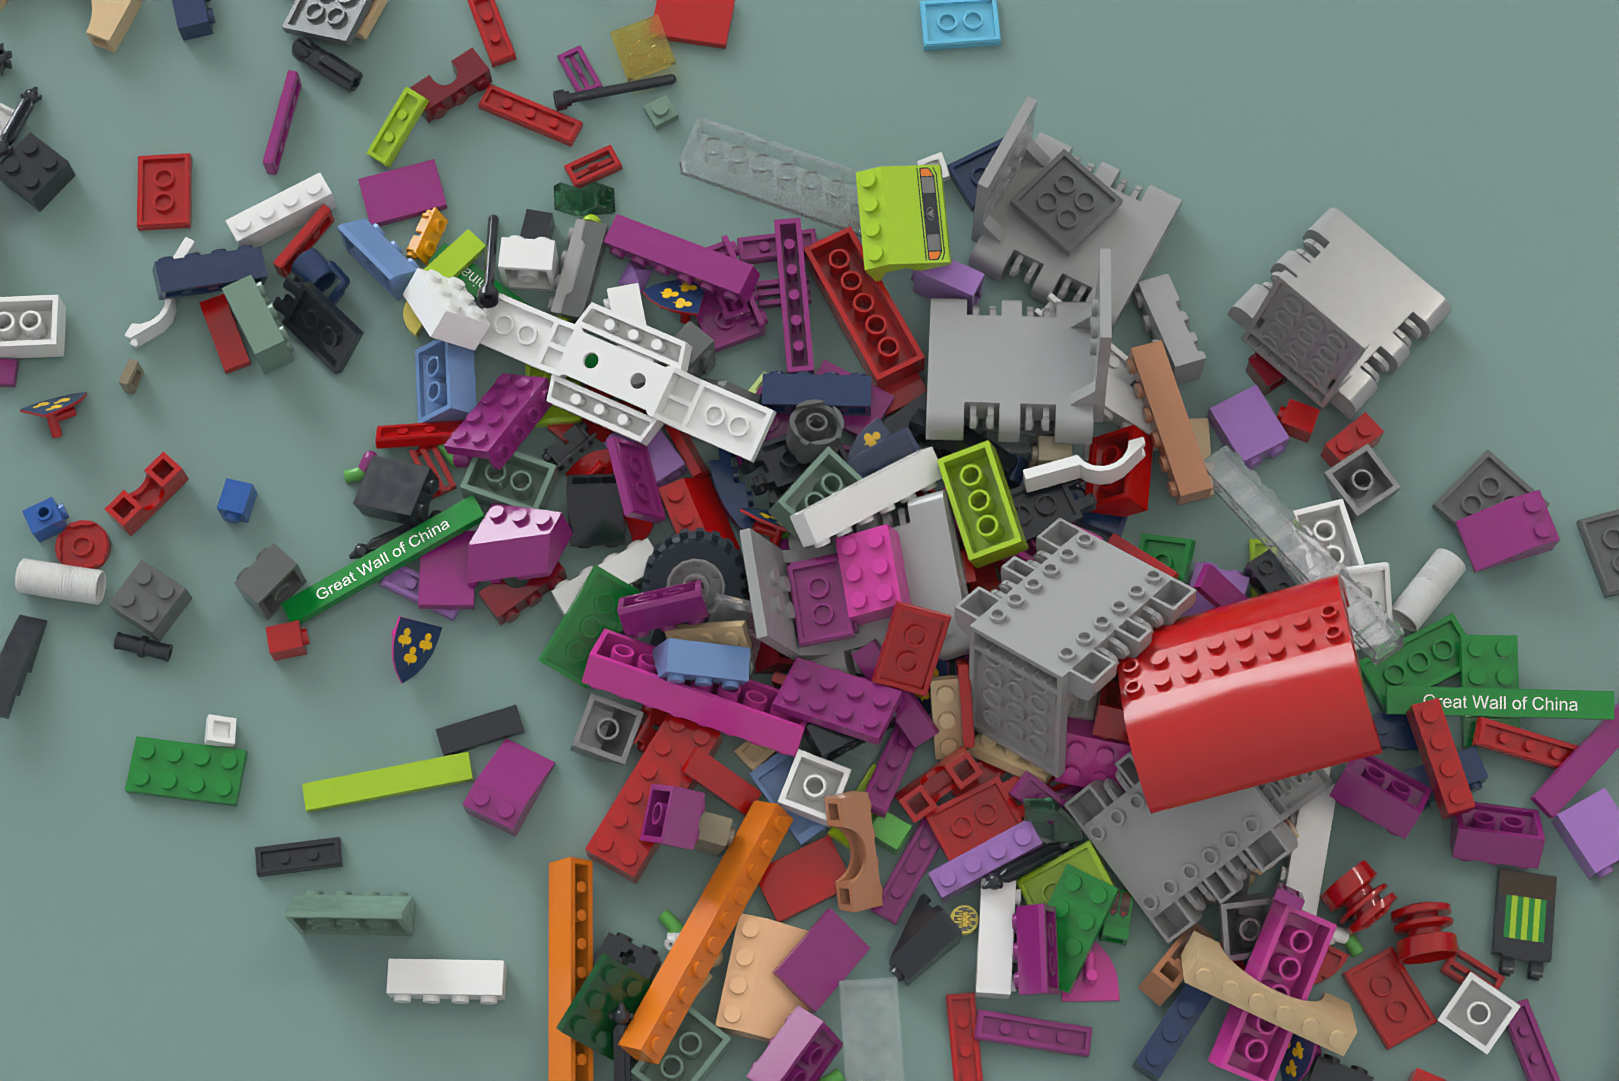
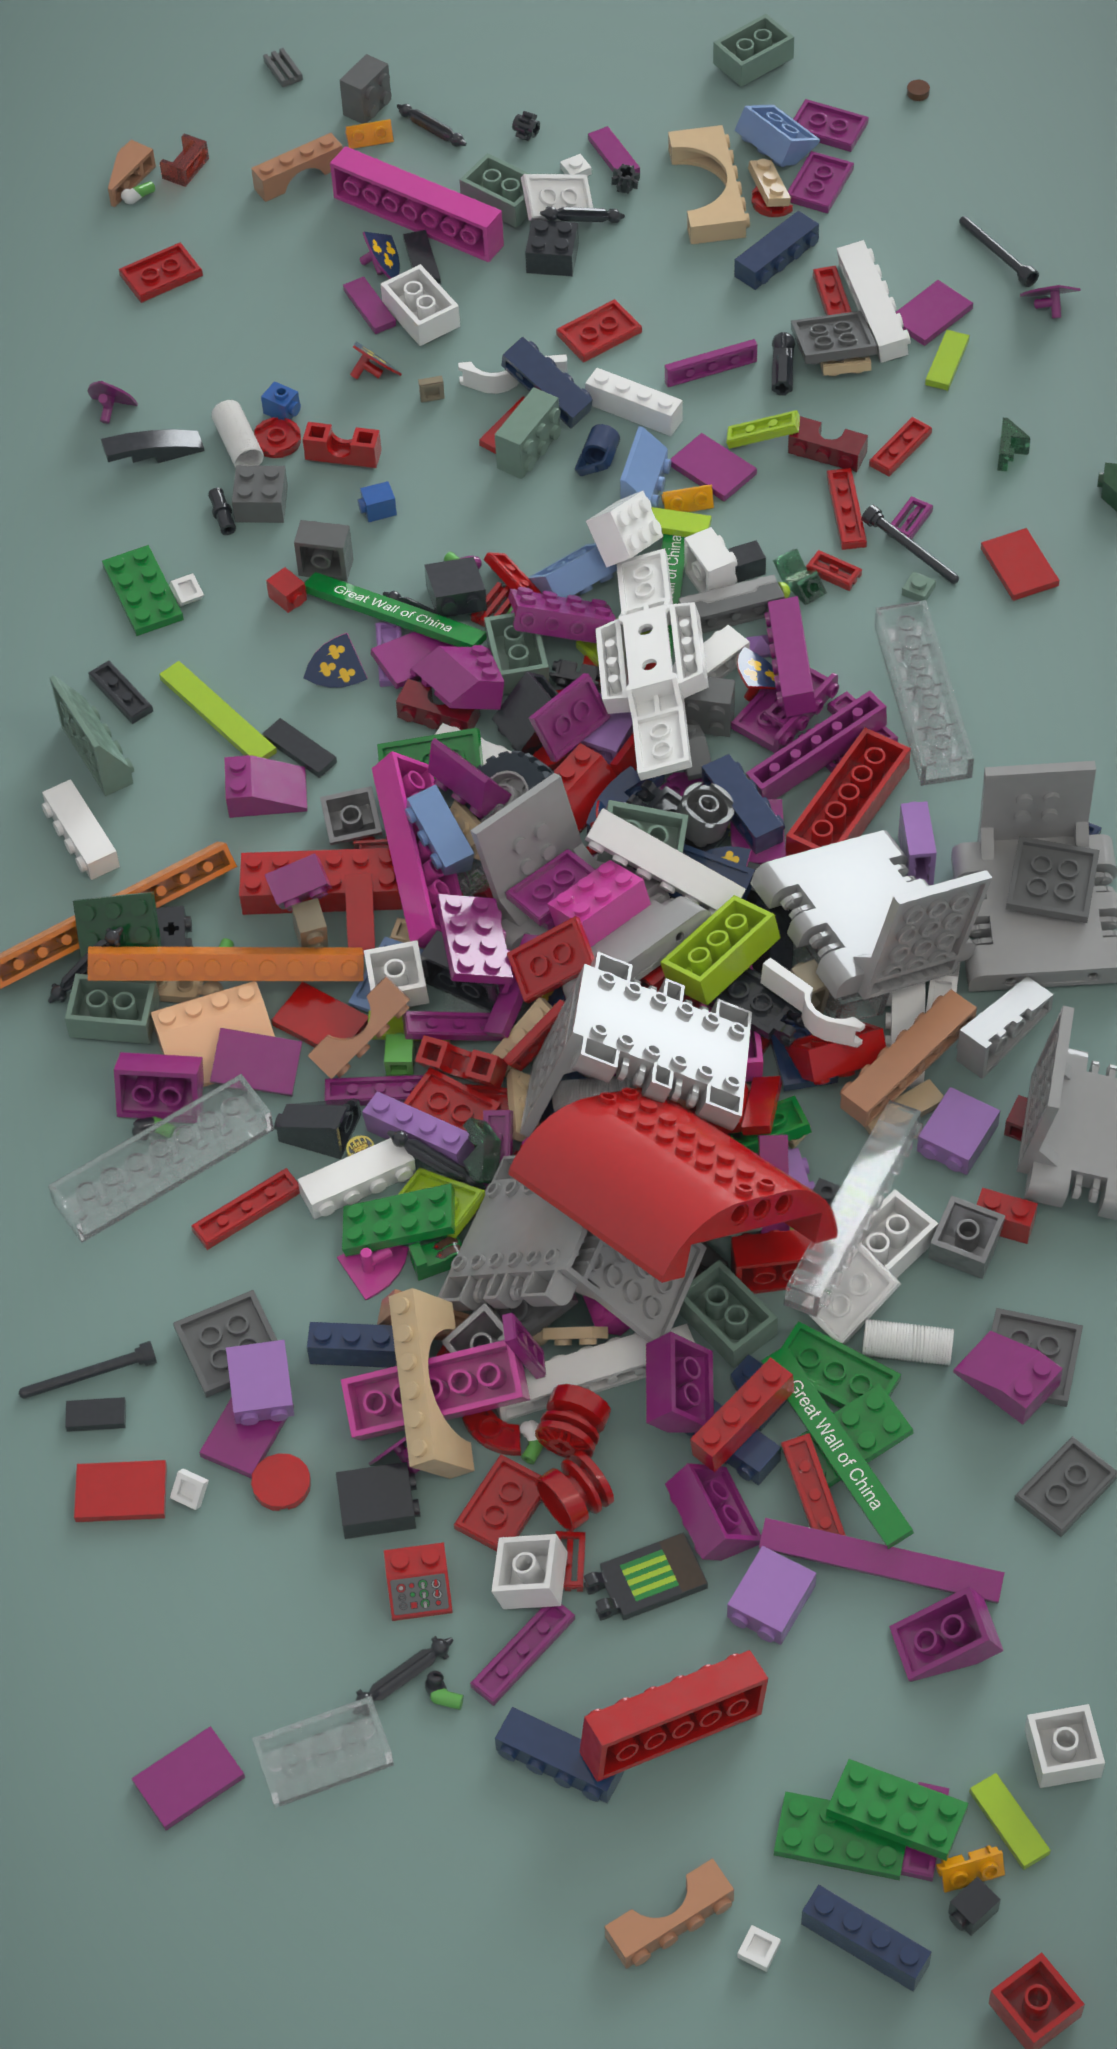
camera: 60 degrees right, 15 degrees down
(304, 240) = (624, 425): red tile -> none
(318, 323) = (557, 469): black tile -> none
(488, 294) = (657, 544): black piece -> none
(643, 48) = (964, 544): clear yellow plate -> none
(903, 218) = (934, 767): lime piece -> none
(1033, 1033) = (292, 1246): magenta tile -> none
(1036, 950) = (360, 1199): magenta slope -> none
(1298, 419) = (995, 1165): red brick -> none

